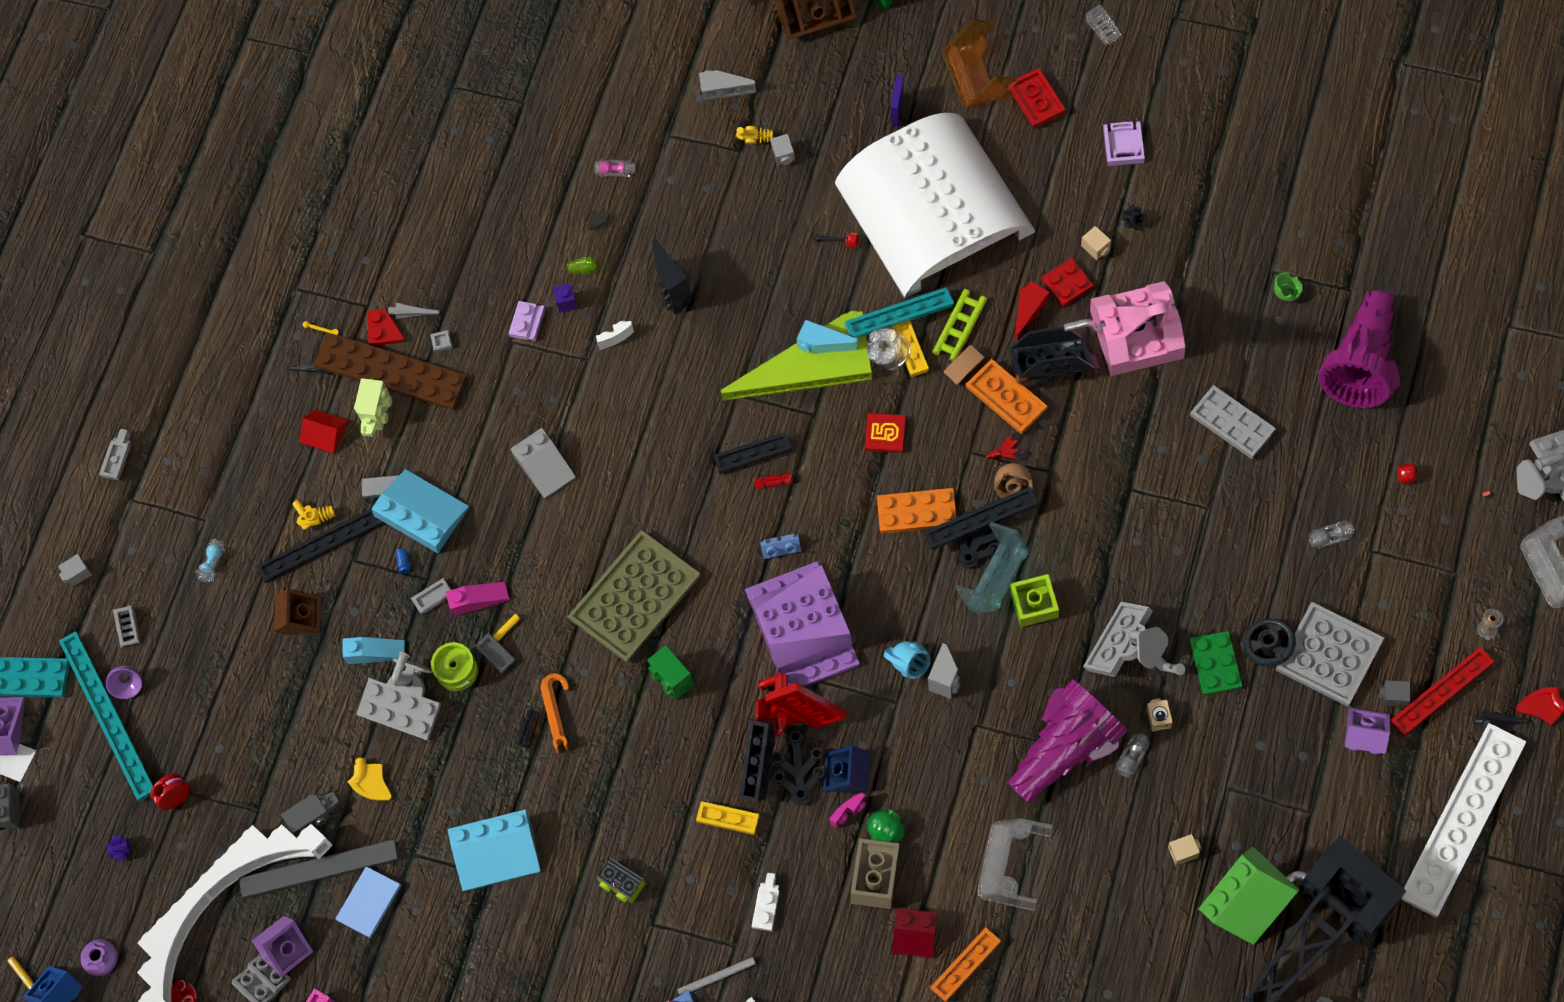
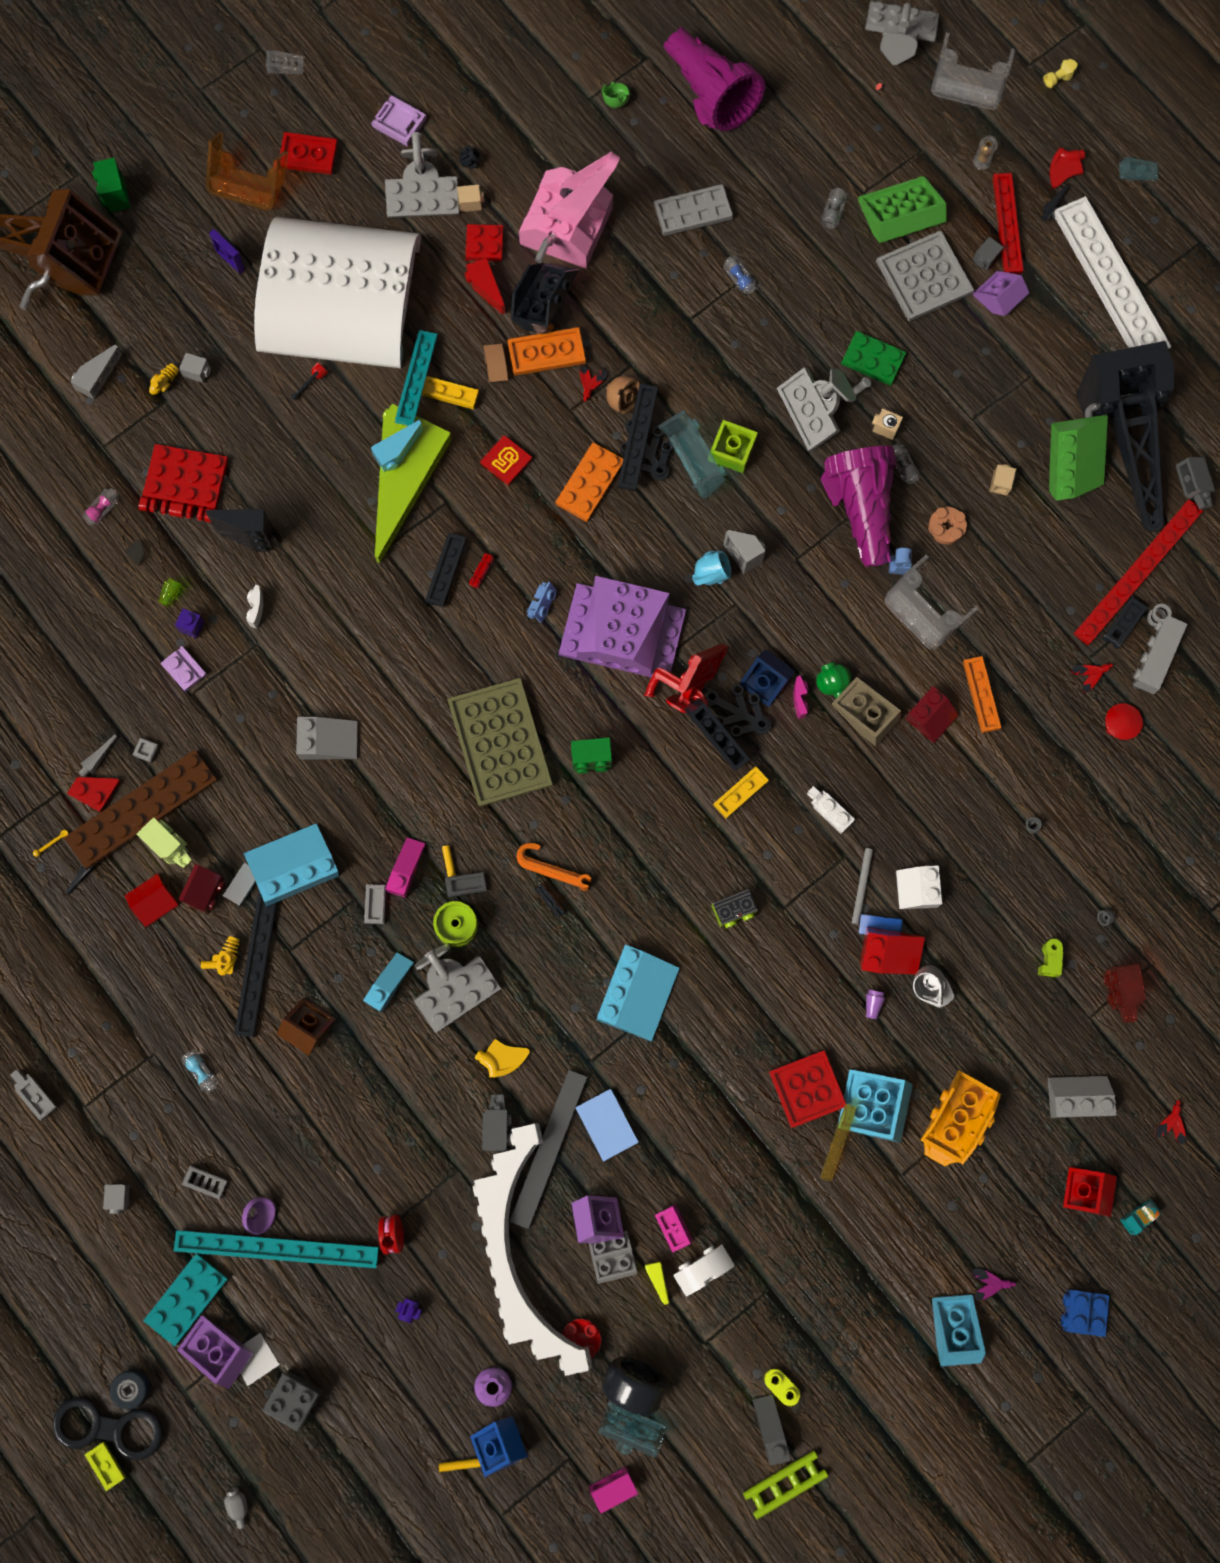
camera: 70 degrees left, 10 degrees up
(354, 458) = (202, 889): none -> dark red slope
(402, 561) = (325, 908): blue pin -> none
(681, 211) = (183, 480): none -> red hinge
(888, 348) = (450, 406): clear brick -> none
(956, 314) = (455, 354): lime bar -> none
(1036, 811) = (901, 562): none -> medium blue leg
(1073, 201) = (423, 191): none -> light grey plate
(1108, 820) = (955, 518): none -> nougat plate
(1198, 509) = (745, 282): none -> clear piece
(1271, 634) = (878, 296): pearl dark grey wheel -> none
(1379, 592) = (903, 209): none -> bright green slope
(1407, 473) = (825, 124): red piece -> none

